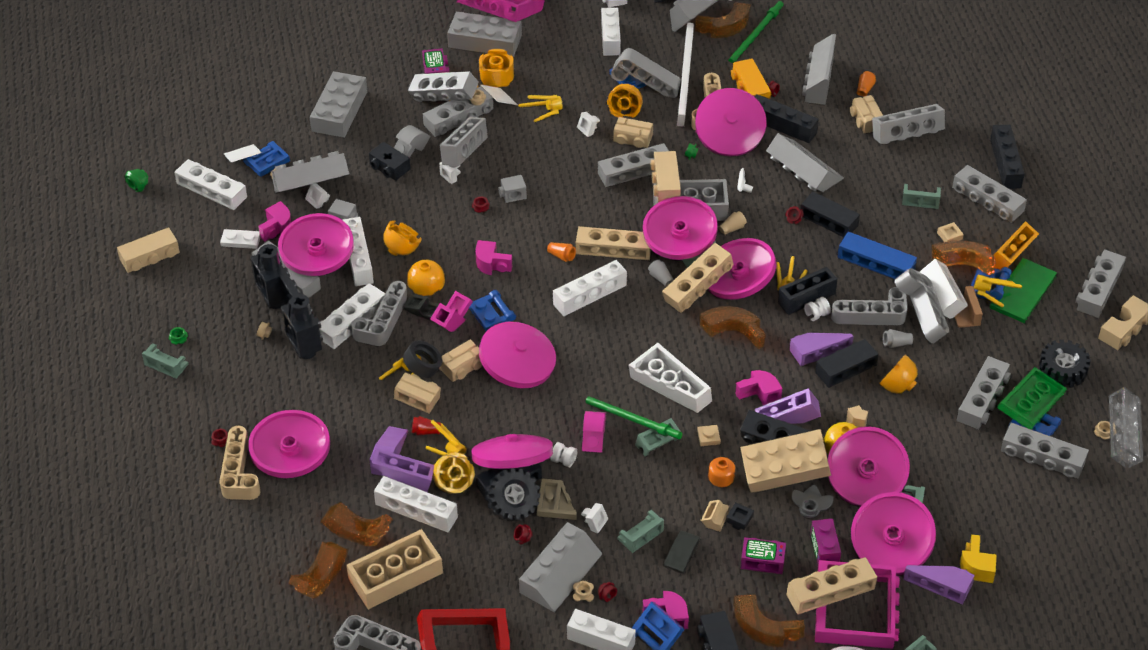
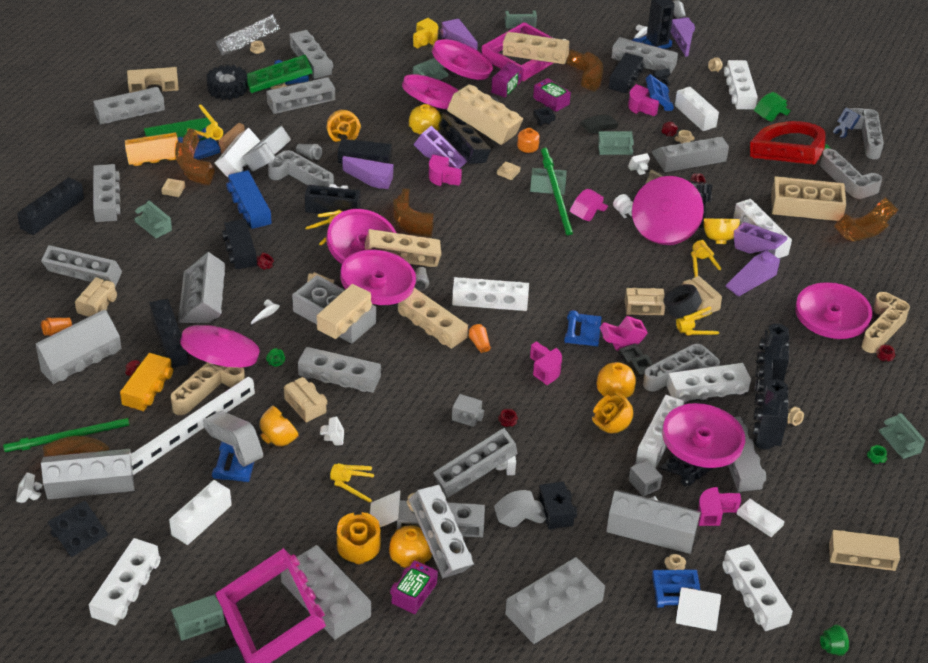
camera: 145 degrees left, 5 degrees down
(356, 528) = (812, 234): clear orange arch -> none
(423, 426) = (712, 275): red cone -> none
(517, 354) = (598, 278): dark pink dish -> none
(670, 378) = (501, 208): white wedge -> none
(715, 515) = (562, 127): tan piece -> none
(857, 416) = (406, 116): tan piece -> none

